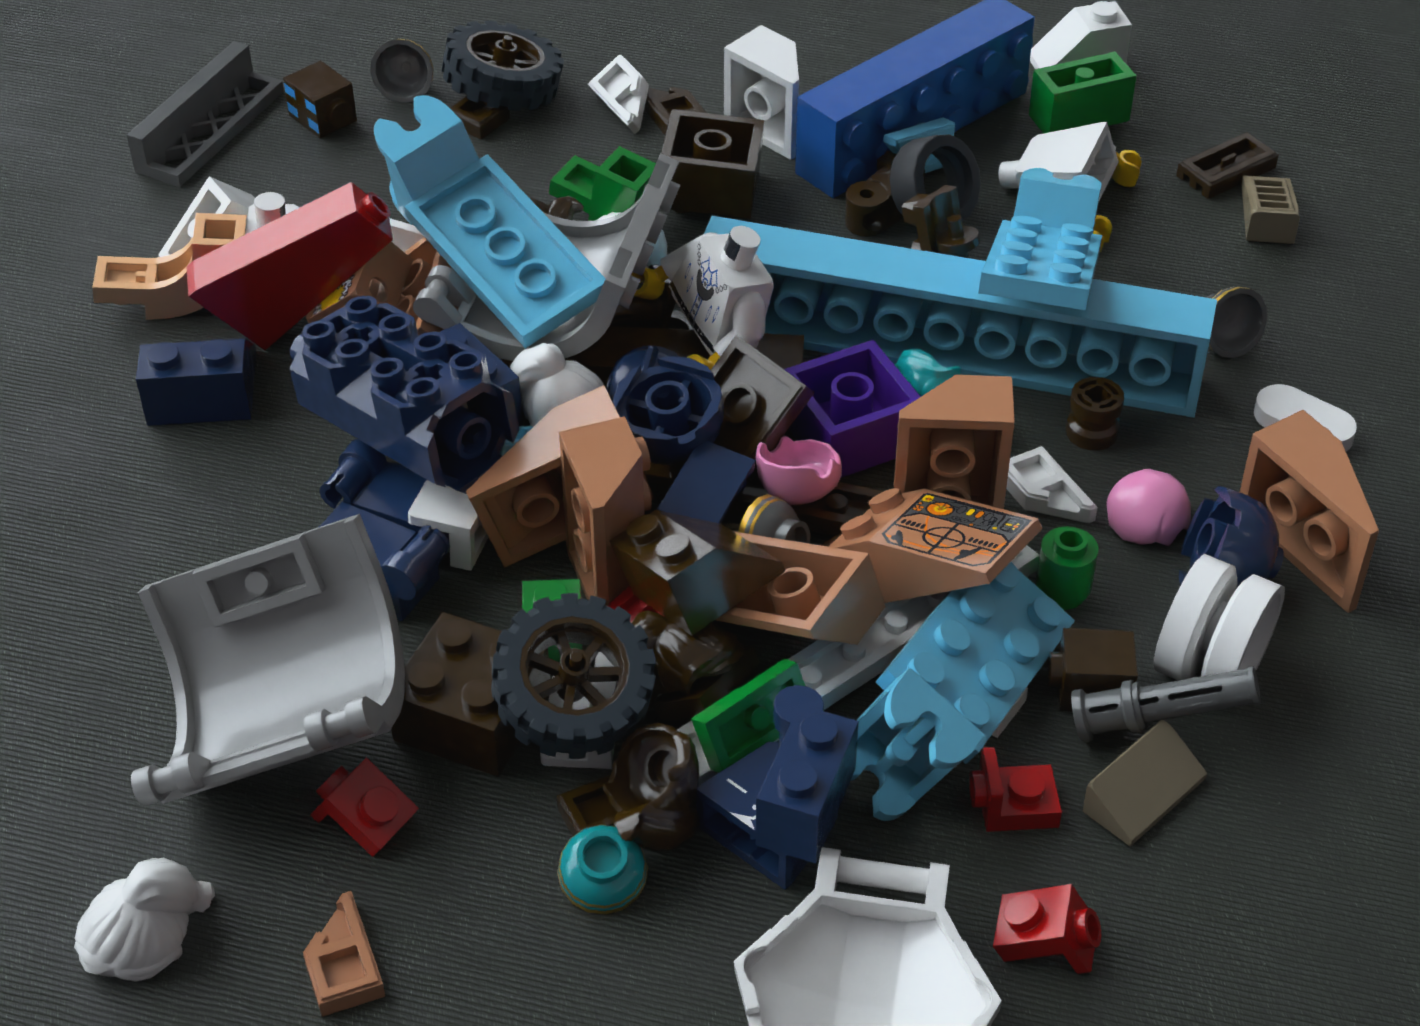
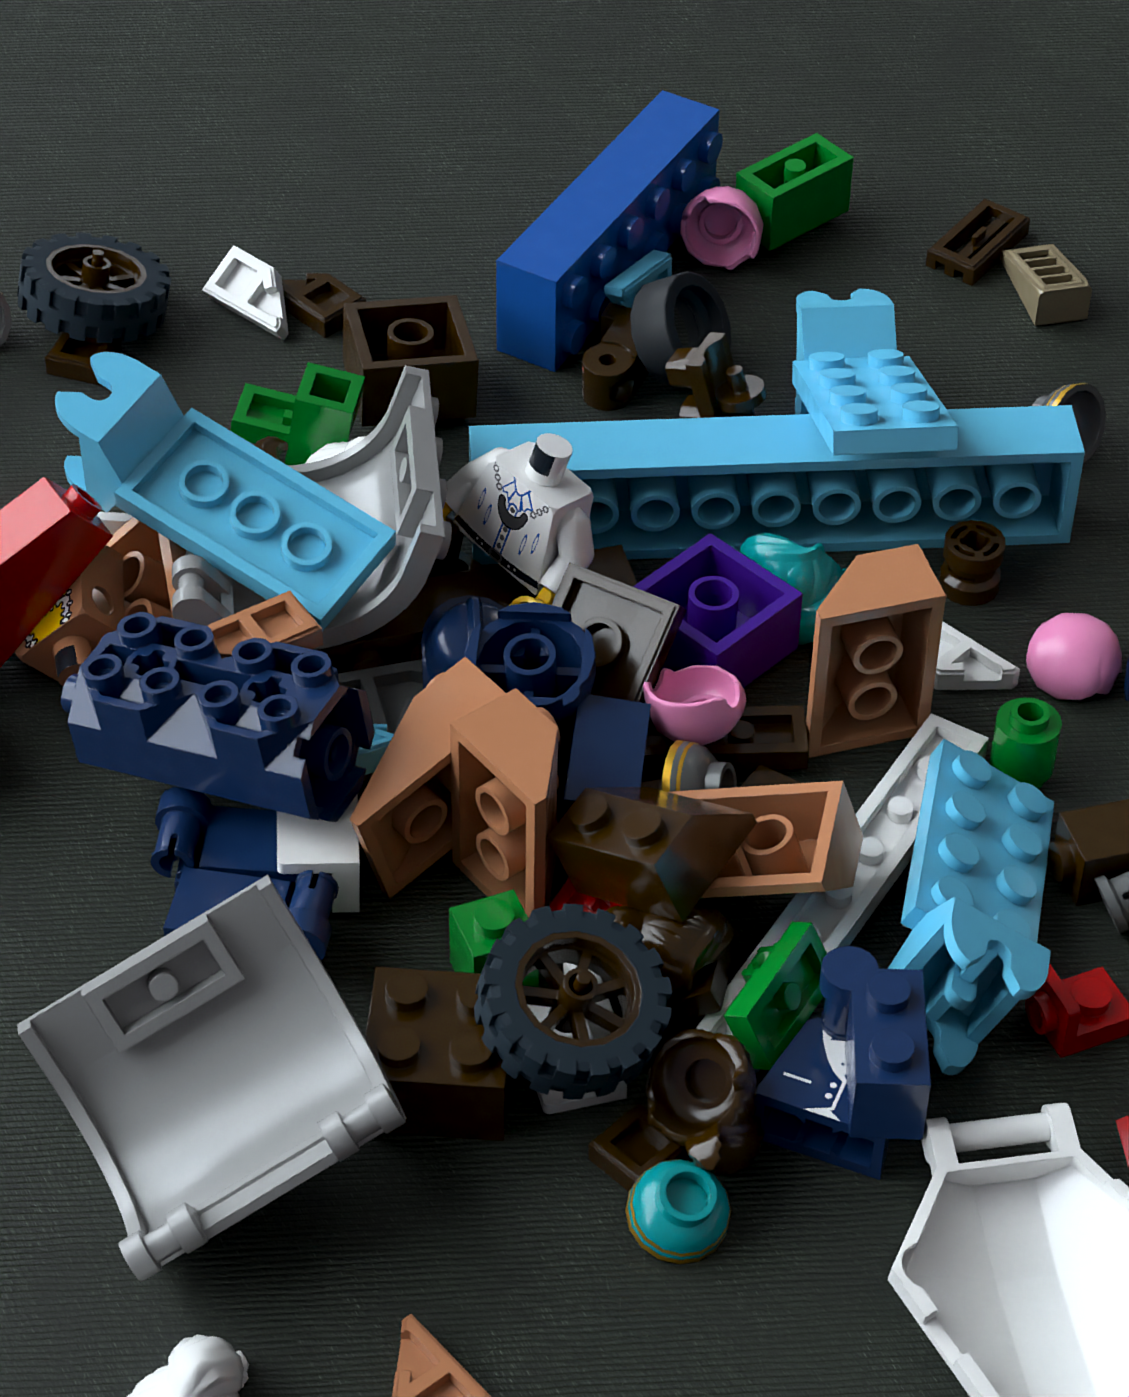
camera: 20 degrees left, 0 degrees up
(364, 805) = (377, 1212): red bracket -> none
(481, 330) = (276, 620): none -> nougat tile
(549, 380) = (381, 666): white hair -> none
(764, 85) = (435, 250): white slope -> none
(935, 541) = (892, 749): nougat slope -> none
(1011, 111) = (722, 227): none -> bright pink hair
(1075, 153) = (819, 262): white torso -> none
(1084, 34) = (764, 121): white slope -> none

